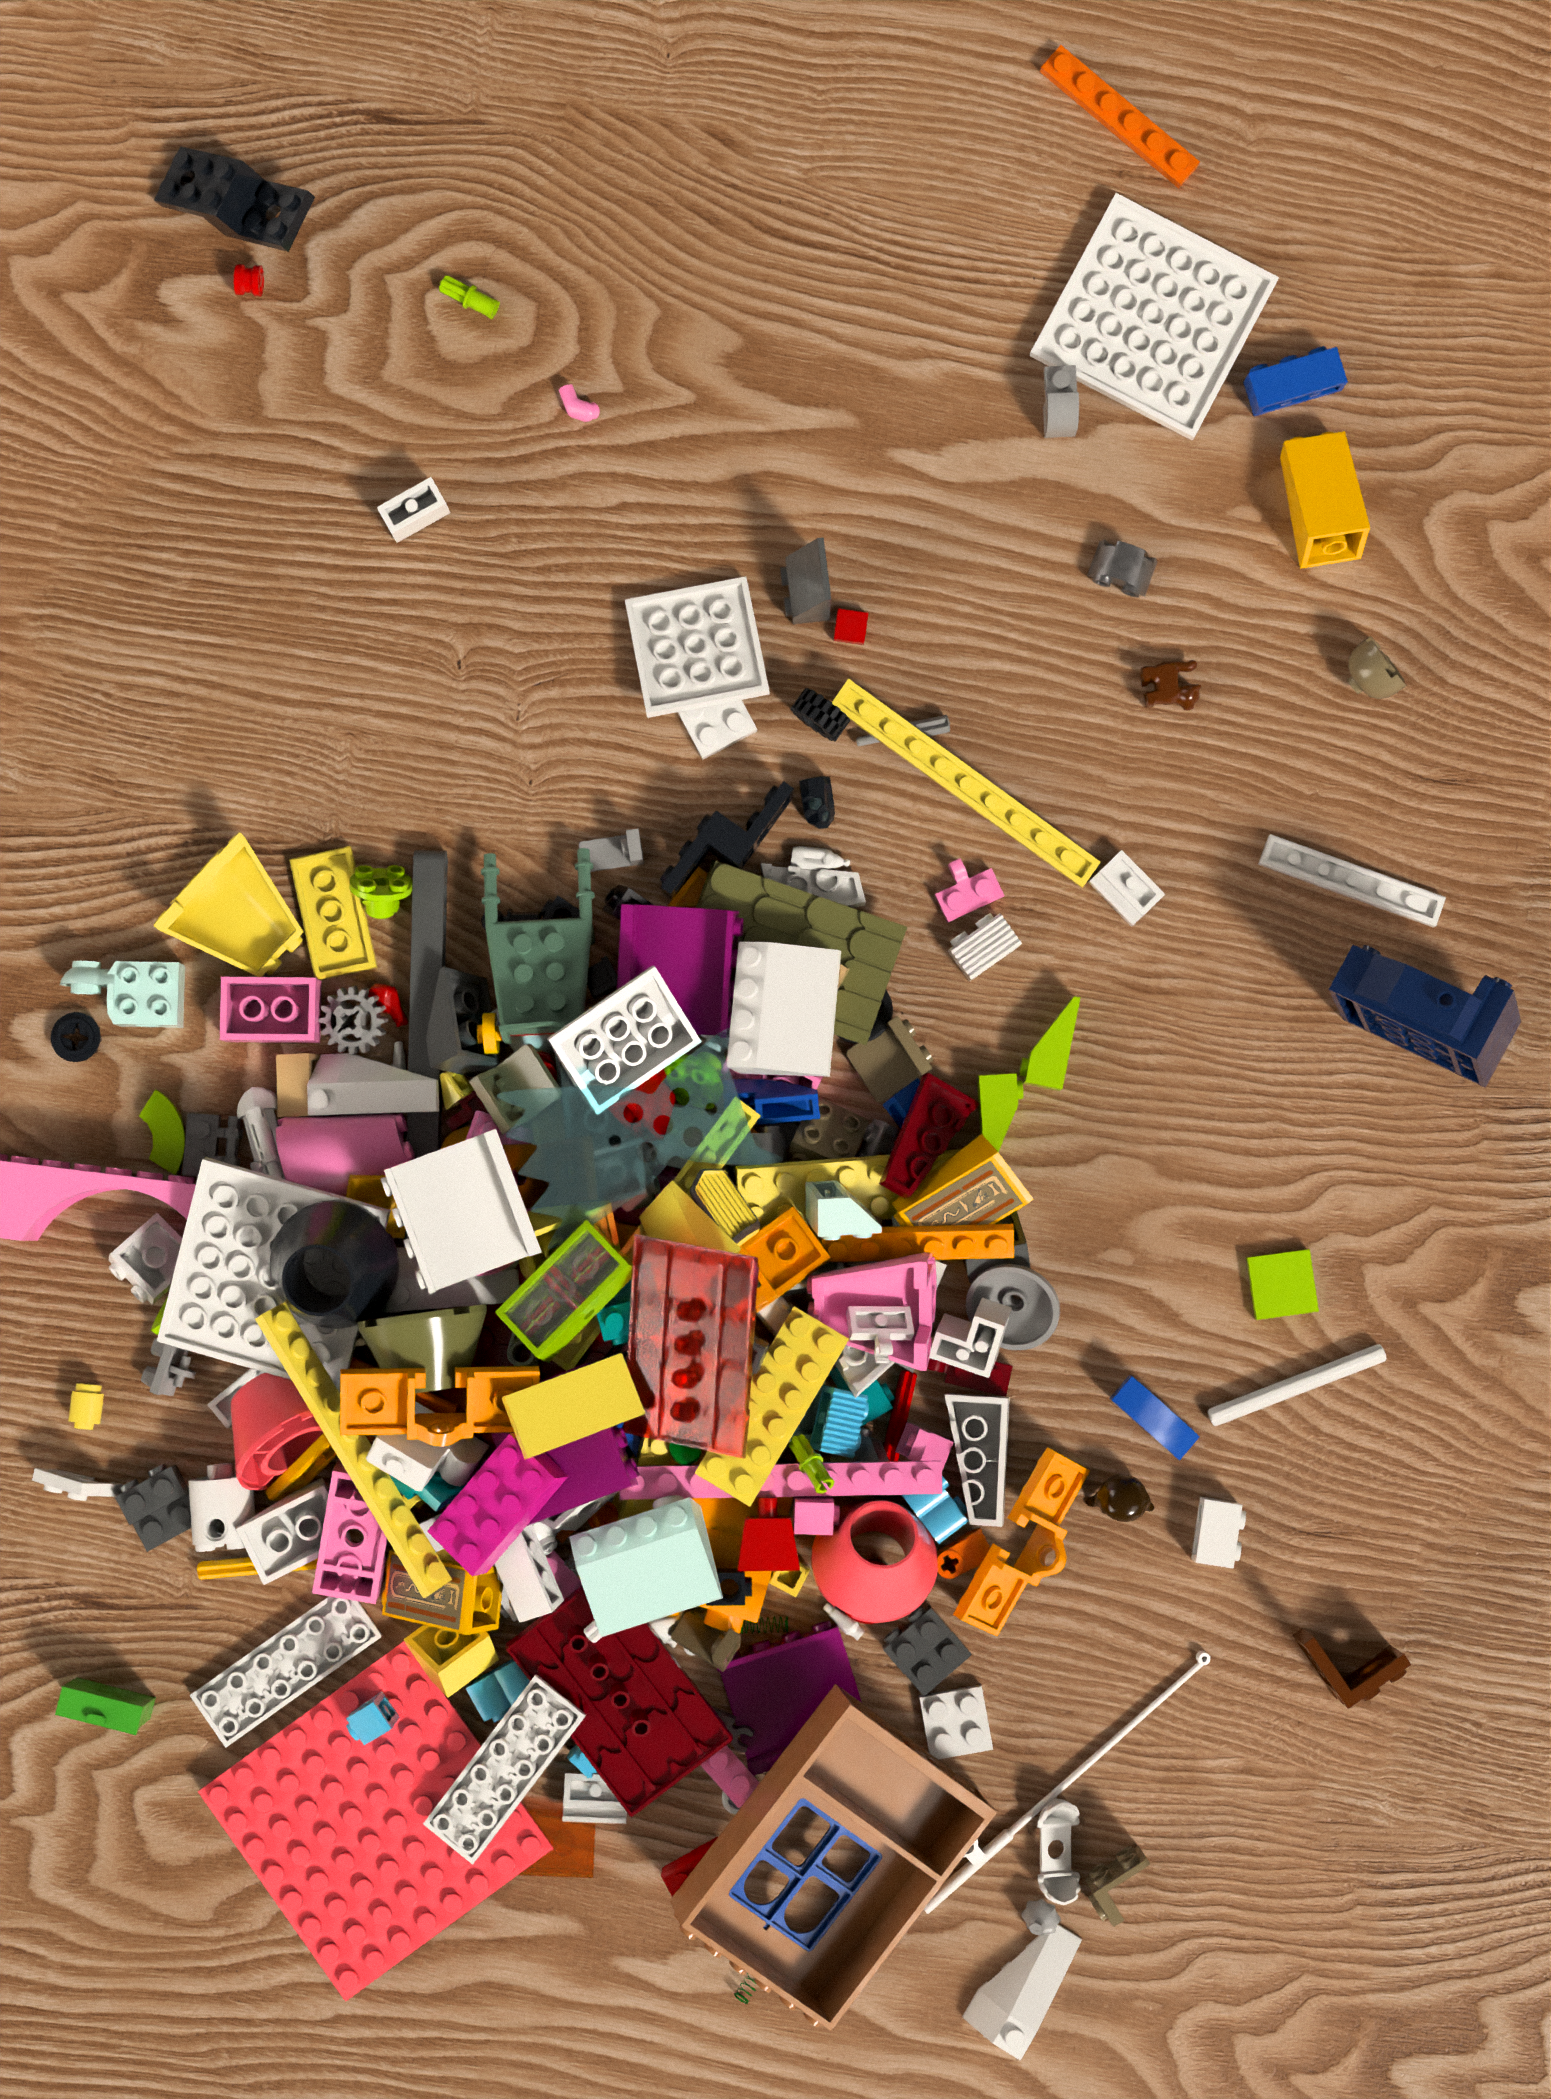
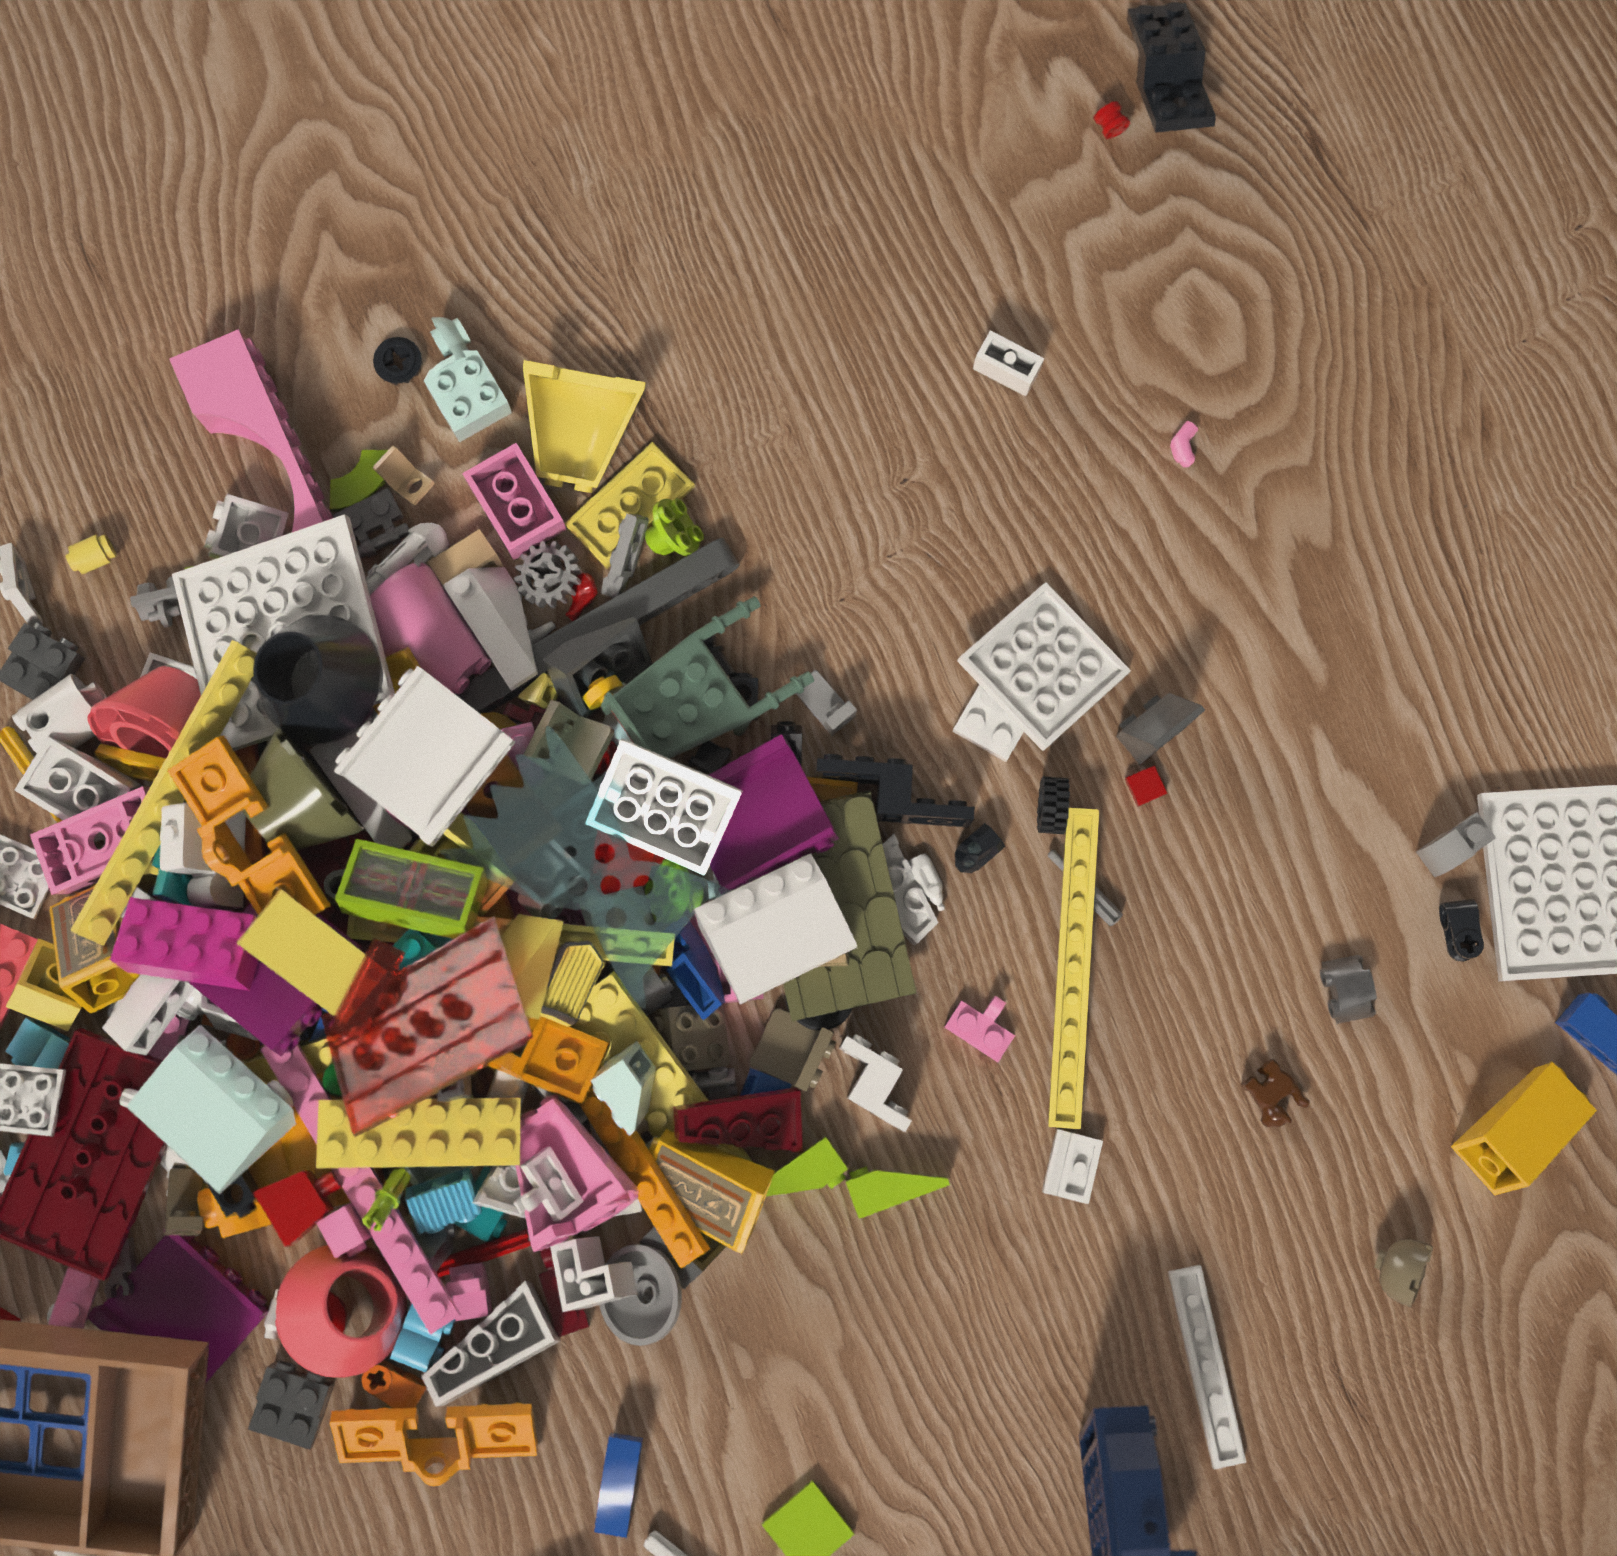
camera: 55 degrees right, 5 degrees down
(182, 1094) = (401, 474): none -> tan bracket
(378, 943) = (625, 556): none -> light grey hinge
(469, 296) = (1215, 302): lime axle -> none
(628, 1378) = (366, 990): none -> clear red tile
(786, 1625) = (241, 1265): green piece -> none
(790, 1580) = (278, 1250): light yellow slope -> none
(956, 1722) = (241, 1472): white plate -> none
(959, 1006) = (875, 1082): none -> white bracket
(984, 946) = (942, 1071): white brick -> none
(1122, 1498) = (527, 1501): dark brown hair -> none
(1128, 440) = (1461, 924): none -> black piece

